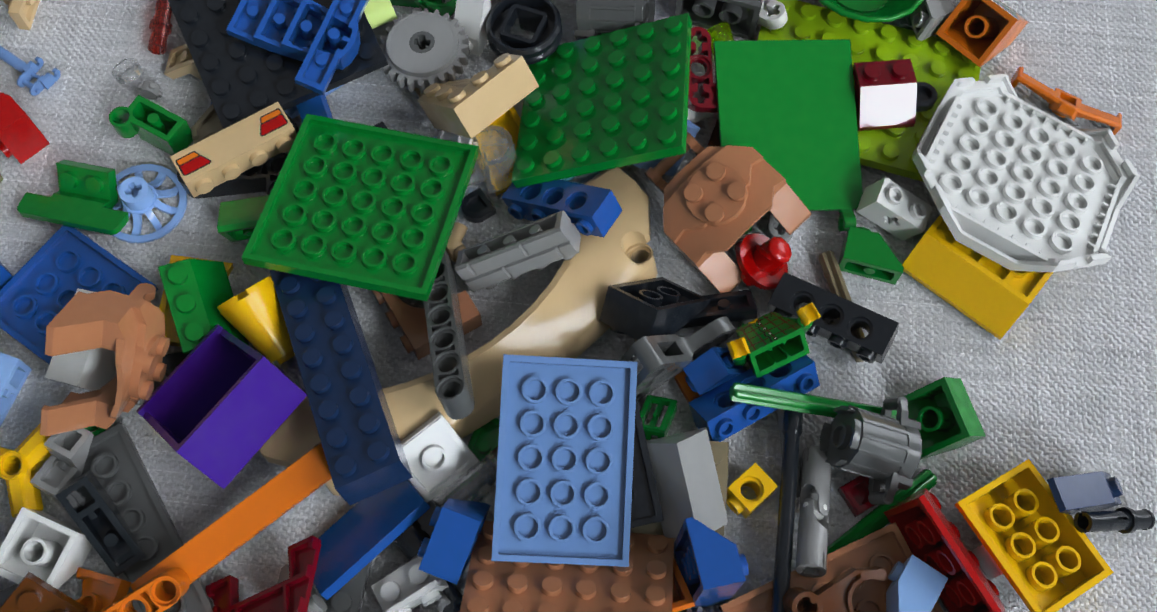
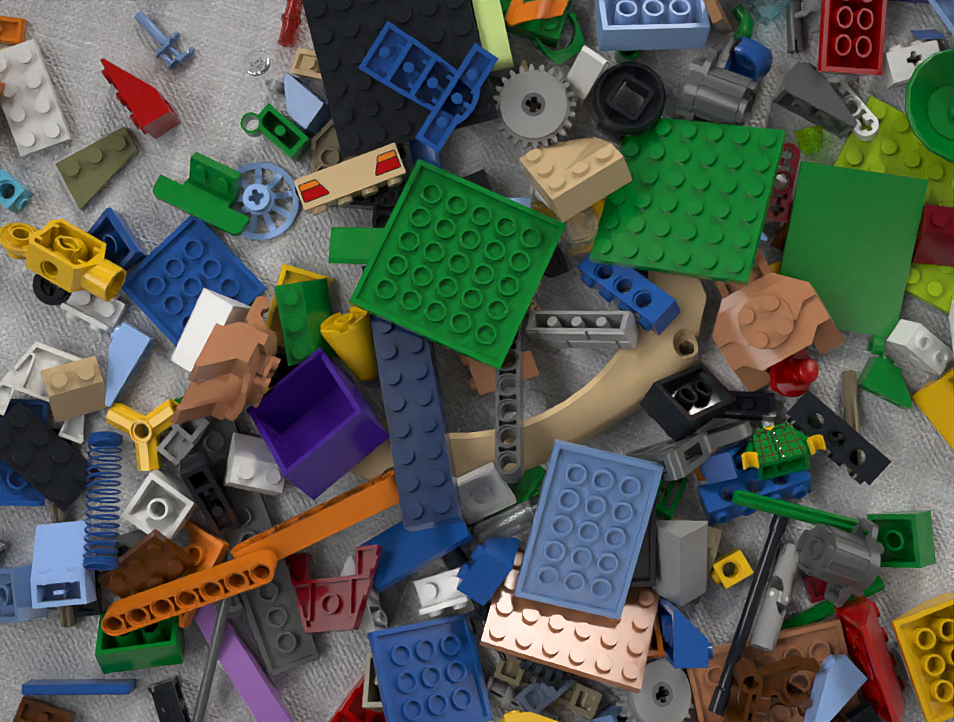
camera: 10 degrees right, 20 degrees up
(154, 482) = (252, 466): none -> white slope
(182, 96) = (305, 105): none -> medium blue slope

